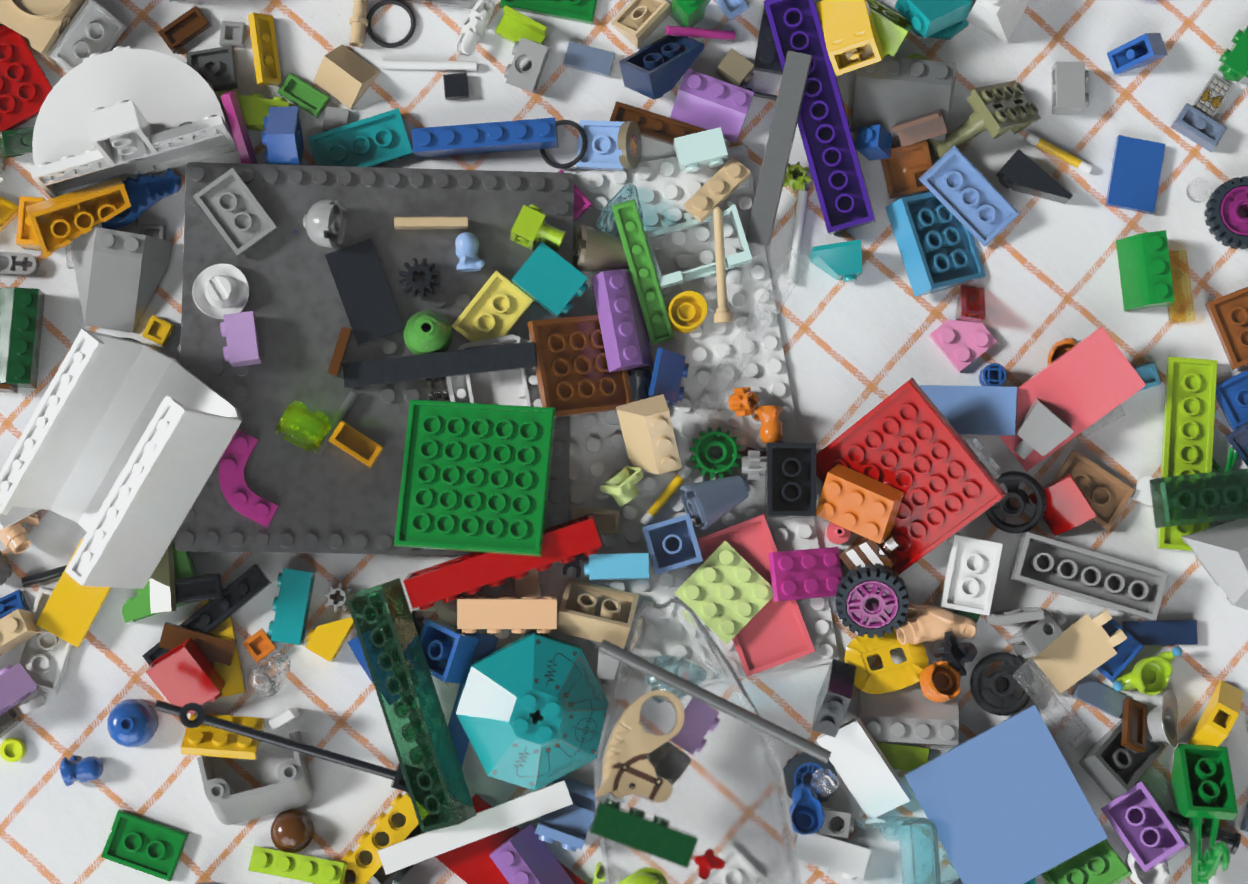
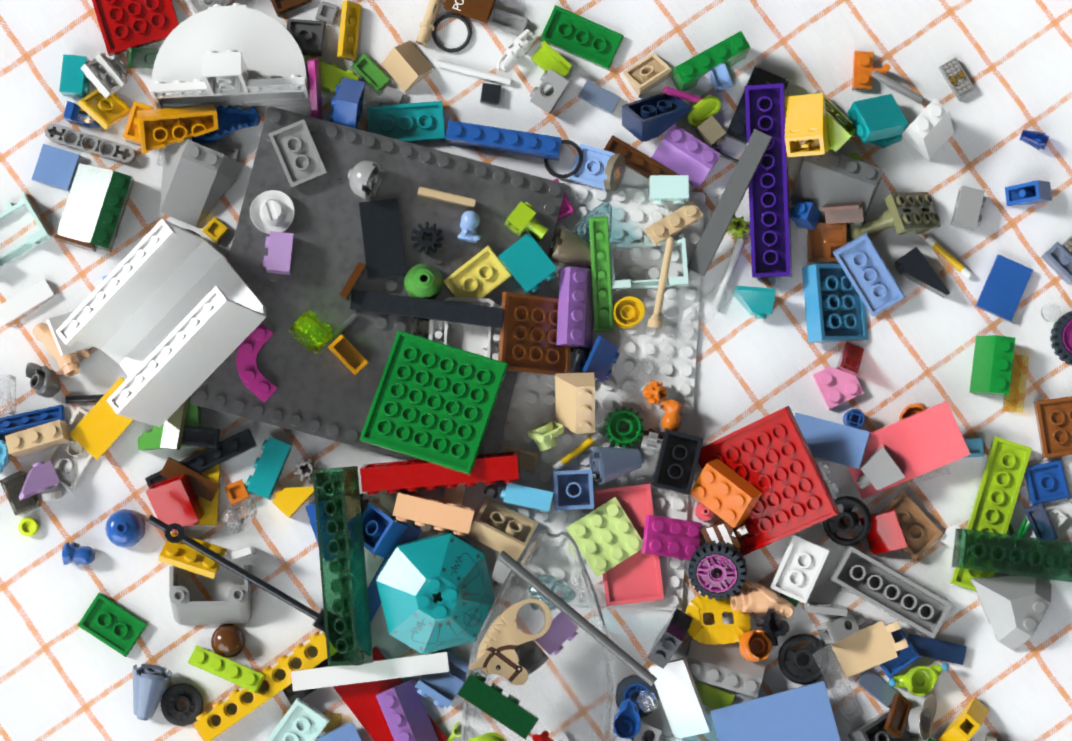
camera: 10 degrees right, 0 degrees up
(719, 44) = (703, 110): none -> lime tile

